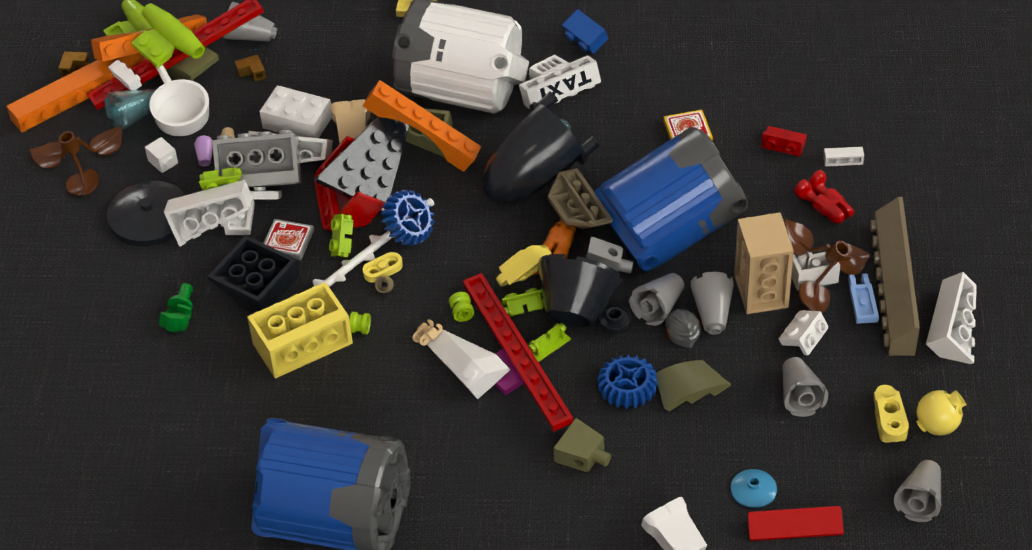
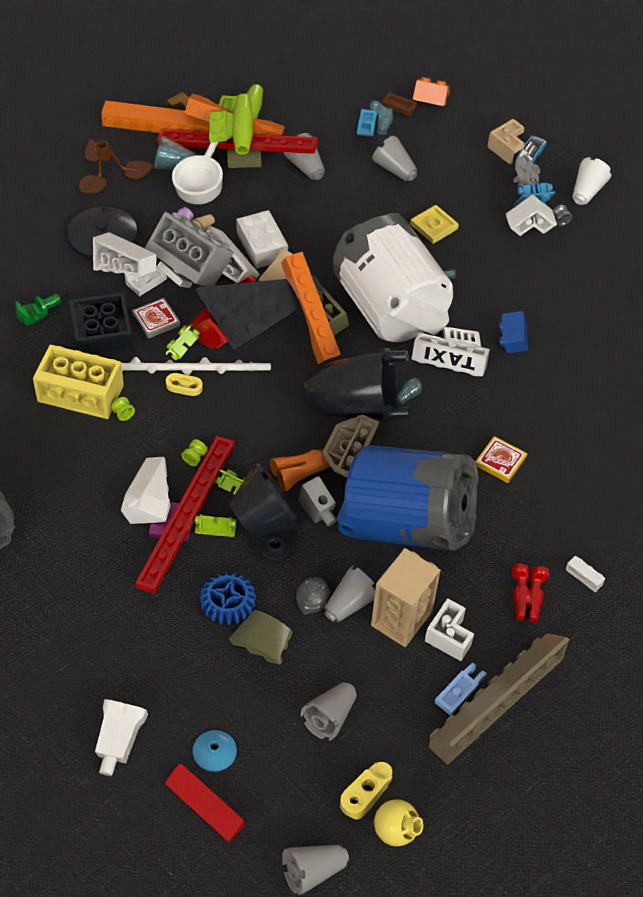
camera: 40 degrees right, 5 degrees up
(125, 75) = (190, 133): white piece -> none
(161, 155) = (153, 202): white brick -> none
(212, 179) = (144, 239): lime hinge -> none
(251, 65) = (277, 187): pearl gold piece -> none
(384, 289) = (170, 396): dark tan hinge -> none
(399, 207) = (234, 355): blue gear -> none
(427, 333) = (151, 451): tan piece -> none
(521, 265) = (270, 459): light yellow piece -> none
(581, 447) = (141, 615): olive torso -> none
(656, 298) = (321, 558): light grey cone -> none
(783, 141) = (557, 525): red bracket -> none
(804, 331) = (389, 674): white bracket -> none
(849, 257) = (486, 648): reddish brown plant -> none
(954, 320) = (502, 766): white wedge -> none

